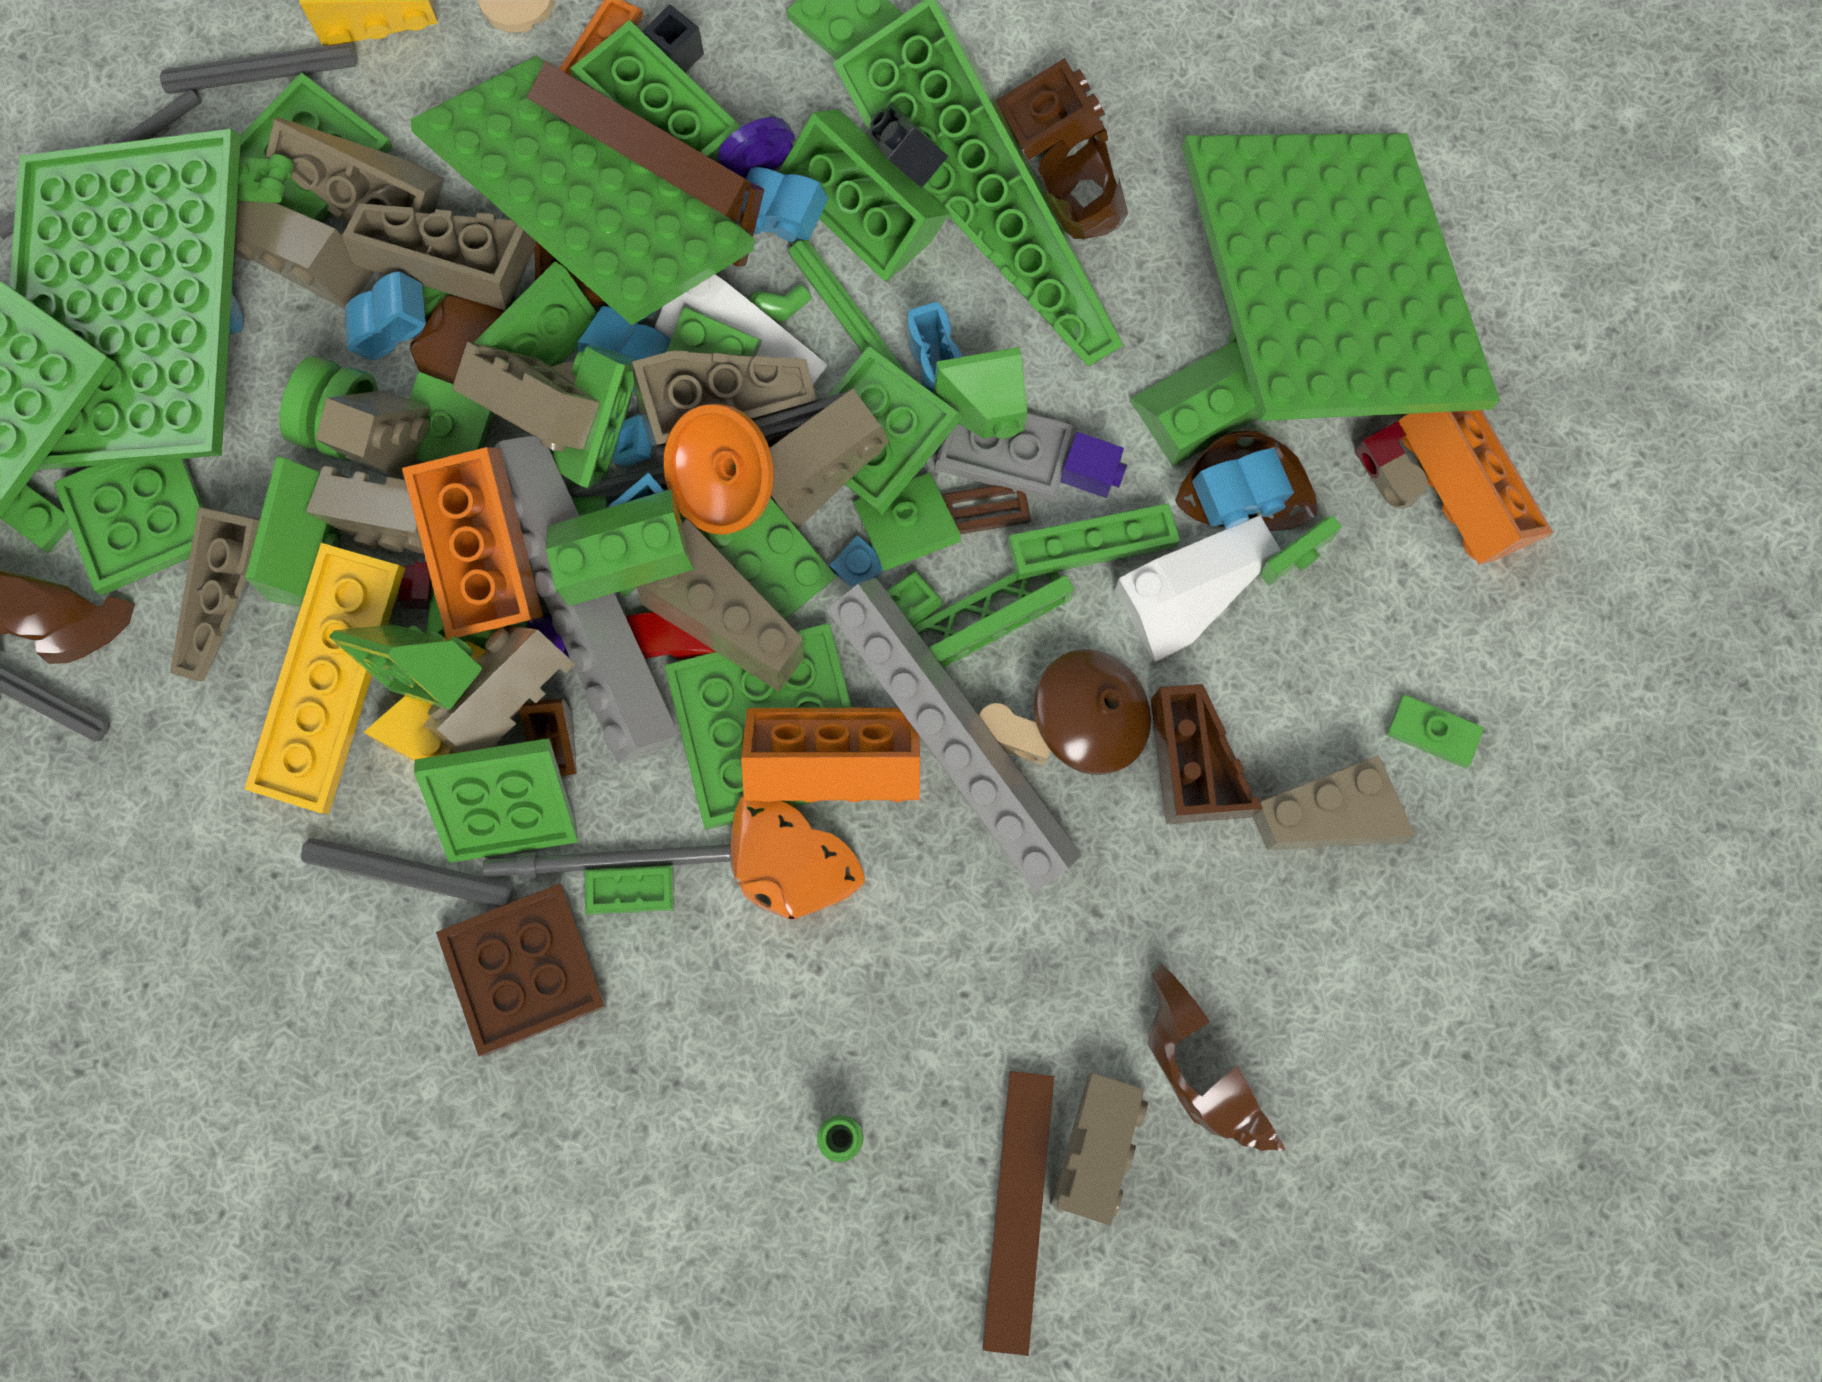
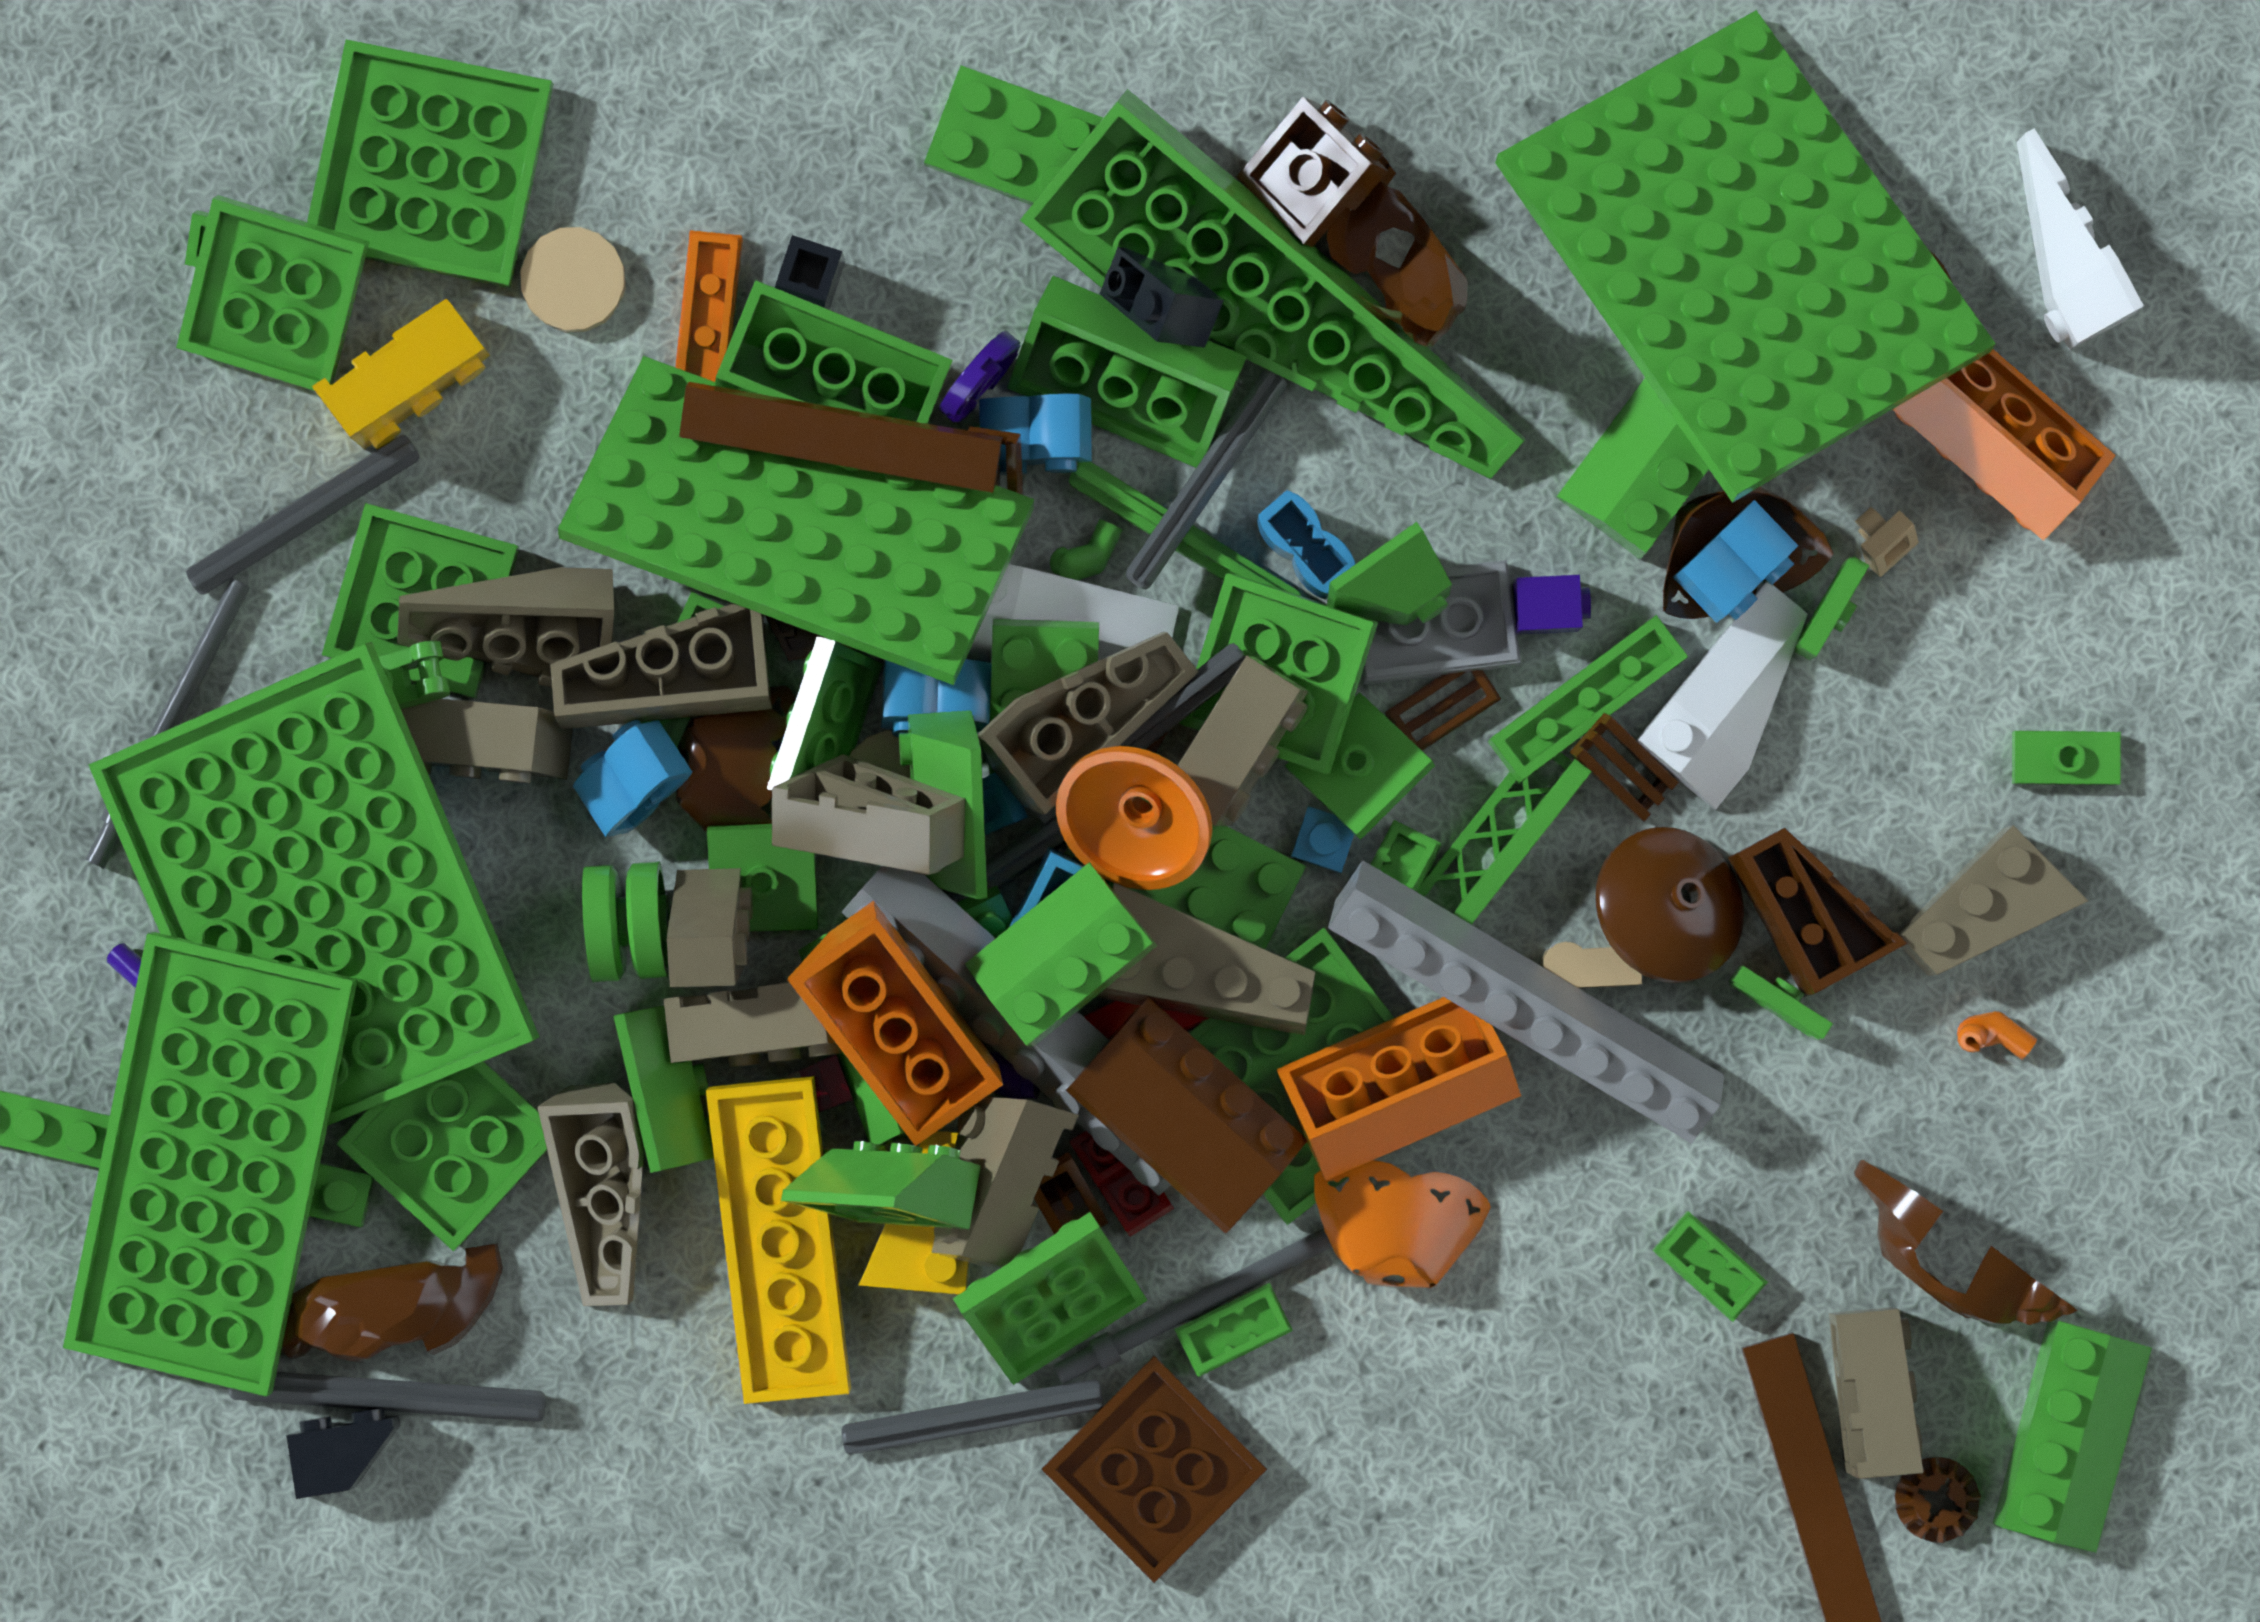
camera: 25 degrees left, 10 degrees up
(598, 761) = (1129, 1199): none -> red slope
(660, 705) = (1186, 1115): none -> reddish brown slope
(826, 1143) = (1602, 1513): bright green brick -> none
(883, 282) = (1206, 479): none -> dark grey axle
(1010, 996) = (1709, 1266): none -> bright green plate
(1092, 1258) = (1914, 1509): none -> reddish brown gear
(1114, 631) = (1651, 793): none -> reddish brown tile
(1147, 817) = (1781, 1000): none -> bright green plate
(1242, 1252) = (2072, 1436): none -> bright green slope
(1301, 909) = (1994, 1029): none -> orange arm
(1361, 519) = (1885, 540): none -> tan tile
(1390, 467) = (1898, 461): leg -> none
(1578, 390) = (2079, 281): none -> white wedge

